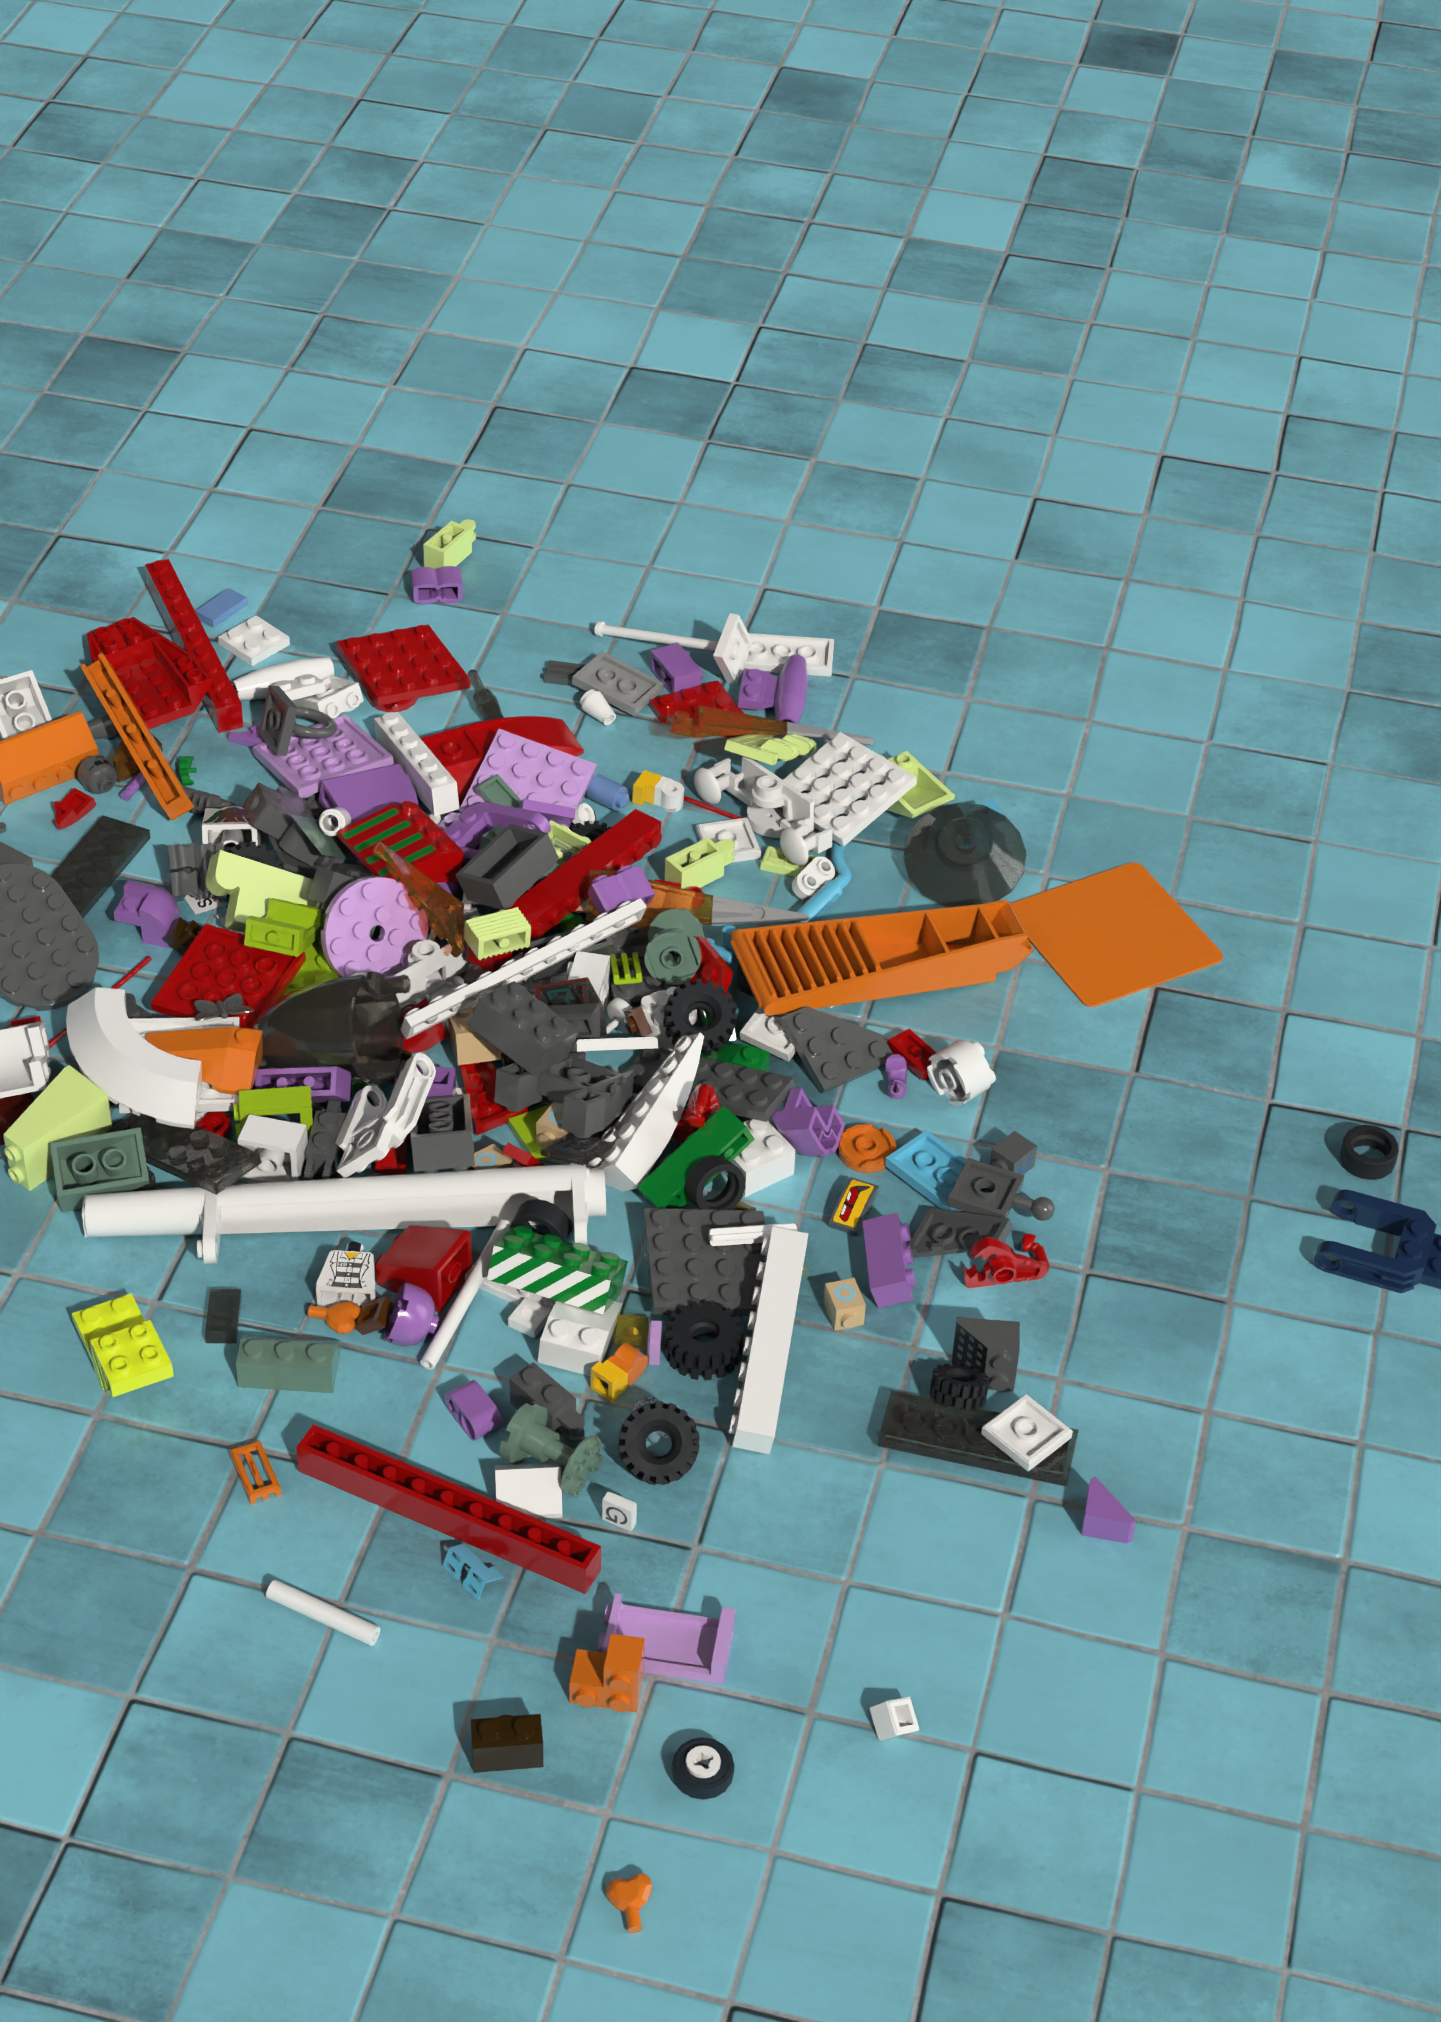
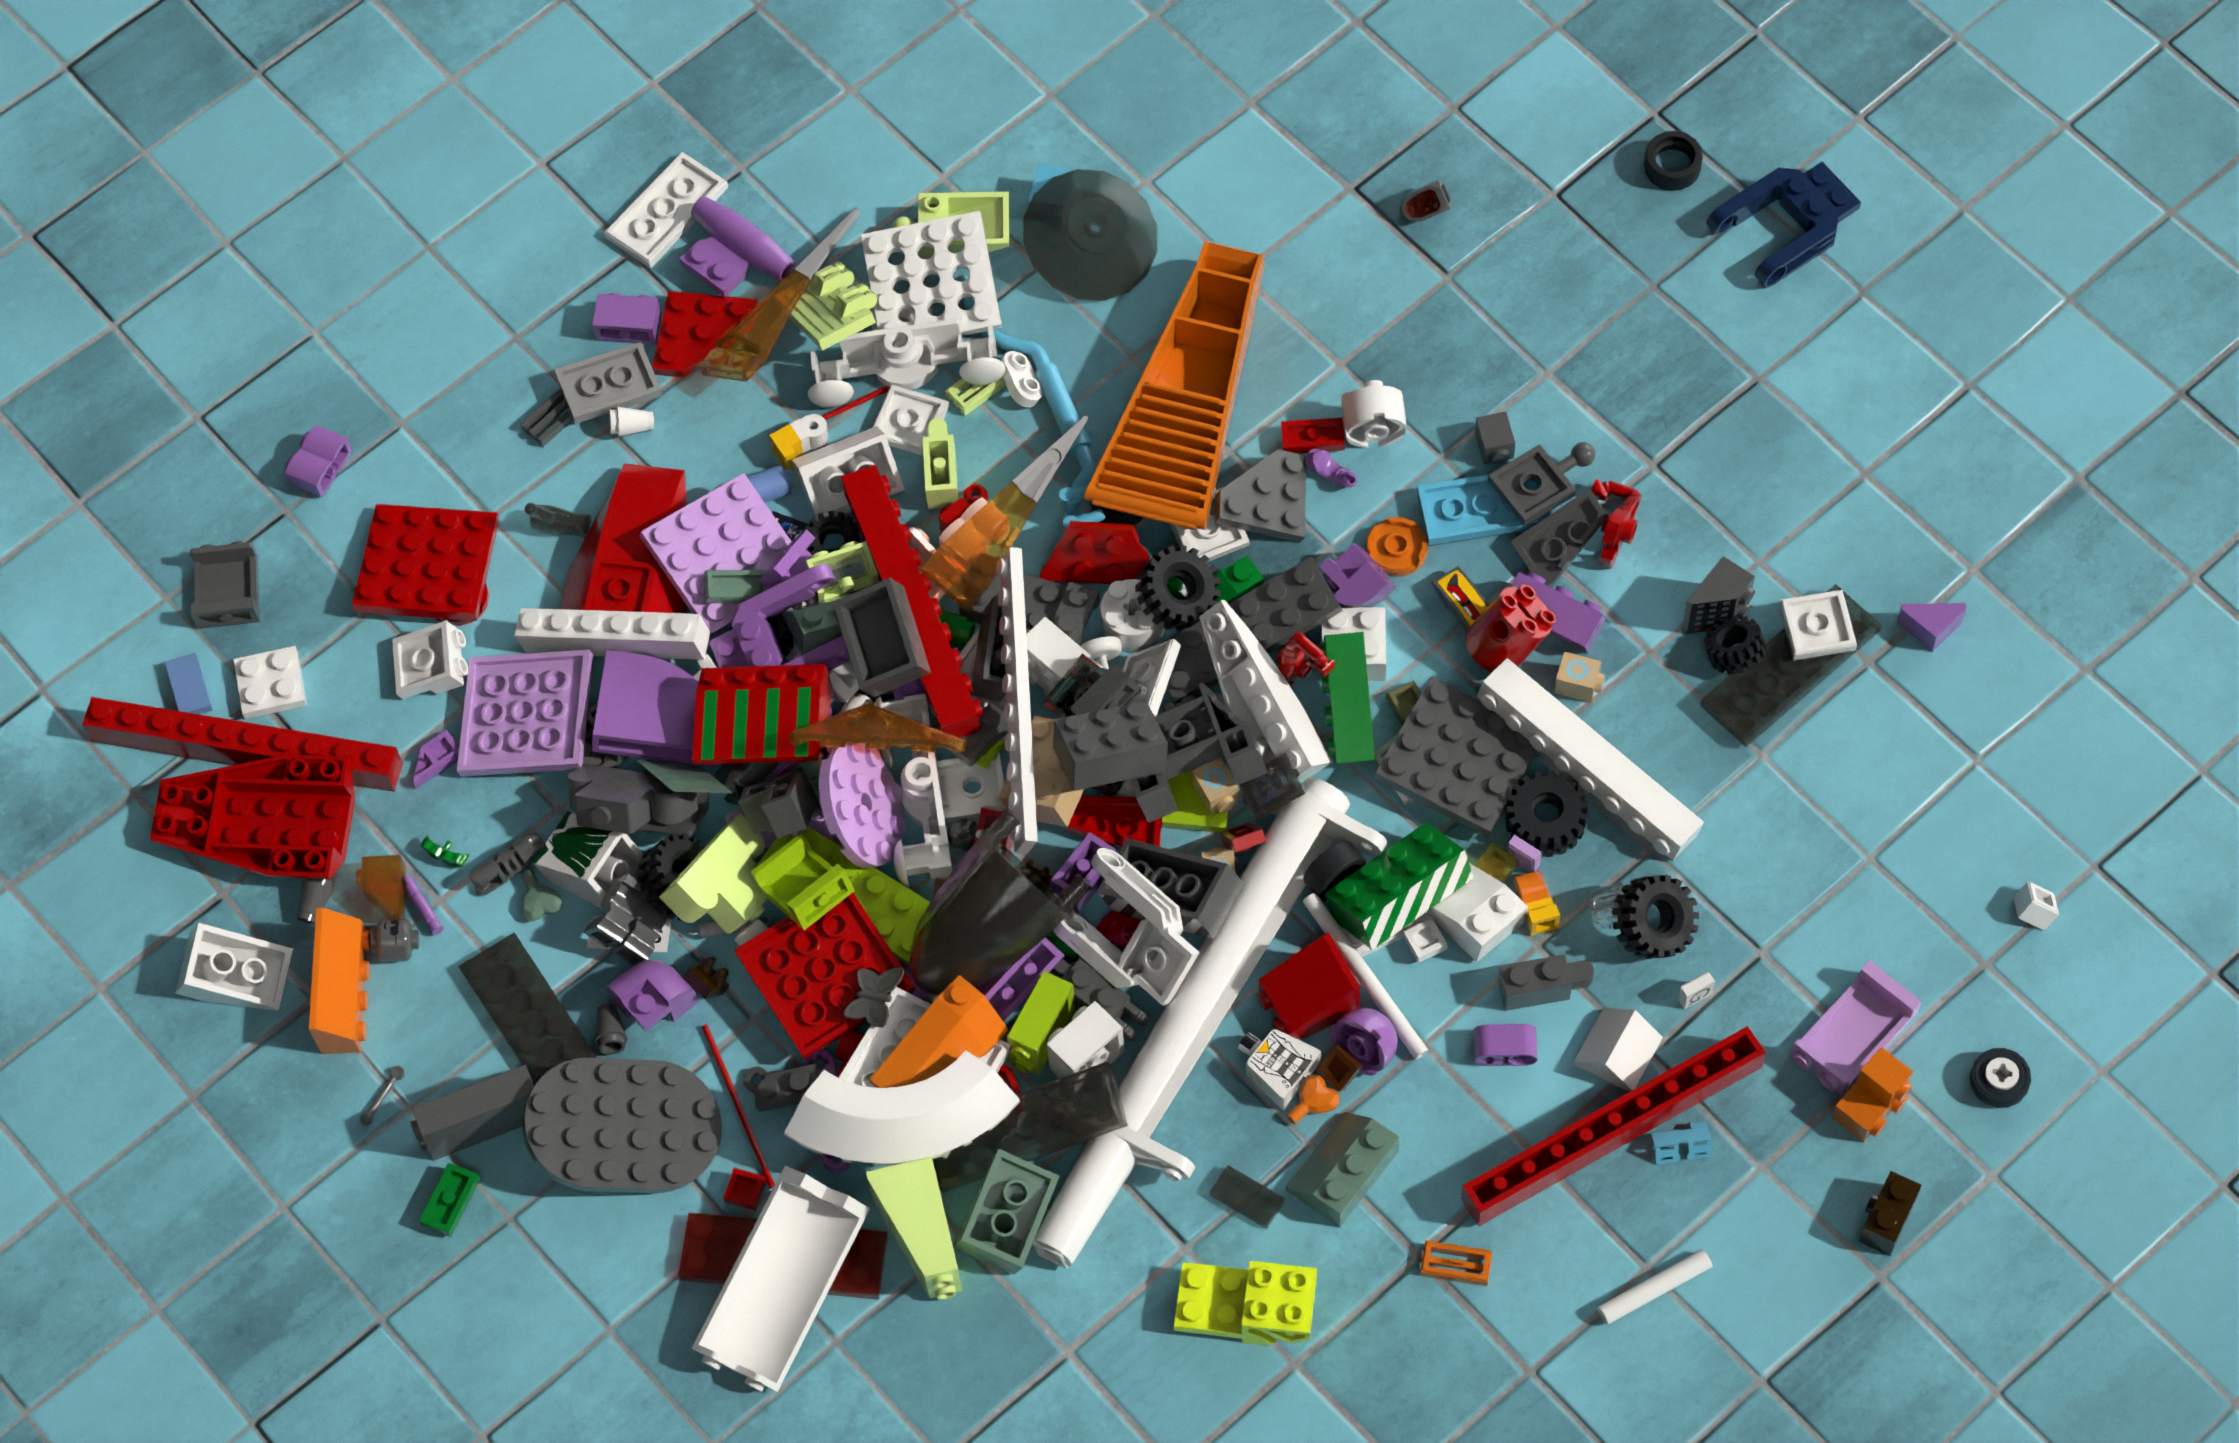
camera: 50 degrees left, 20 degrees up
(73, 808) = (420, 989): red slope -> none
(102, 909) = (609, 1030): none -> dark grey cone
(138, 738) = (389, 872): orange tile -> none
(186, 832) = (538, 898): none -> sand green rock
(279, 721) = (468, 724): dark grey tile -> none
(295, 678) = (381, 684): white plate -> none
(308, 590) = (225, 585): none -> dark grey panel
(327, 823) = (669, 755): white brick -> none
(450, 544) = (270, 413): yellowish green brick -> none
(497, 933) = (966, 696): yellowish green brick -> none
(533, 1438) = (1582, 1014): sand green piece -> none
(583, 813) = (790, 526): white tile -> none
(625, 962) = (1052, 601): lime tile -> none
(626, 885) = (973, 558): medium lavender brick -> none
(630, 1896) = (2089, 1203): orange rock -> none
(636, 1022) = (1132, 643): reddish brown plate -> none
(672, 947) = (1077, 562): sand green piece -> none
(677, 827) = (822, 469): none -> white slope
(703, 1172) = (1387, 698): black tyre -> none
(729, 651) = (649, 255): white tile -> none
(743, 1234) = (1464, 702): white axle -> none
(840, 1228) = (1509, 628): none -> red cylinder
(1114, 934) = (1262, 177): orange piece -> none
(1182, 1024) = (1426, 201): none -> rock

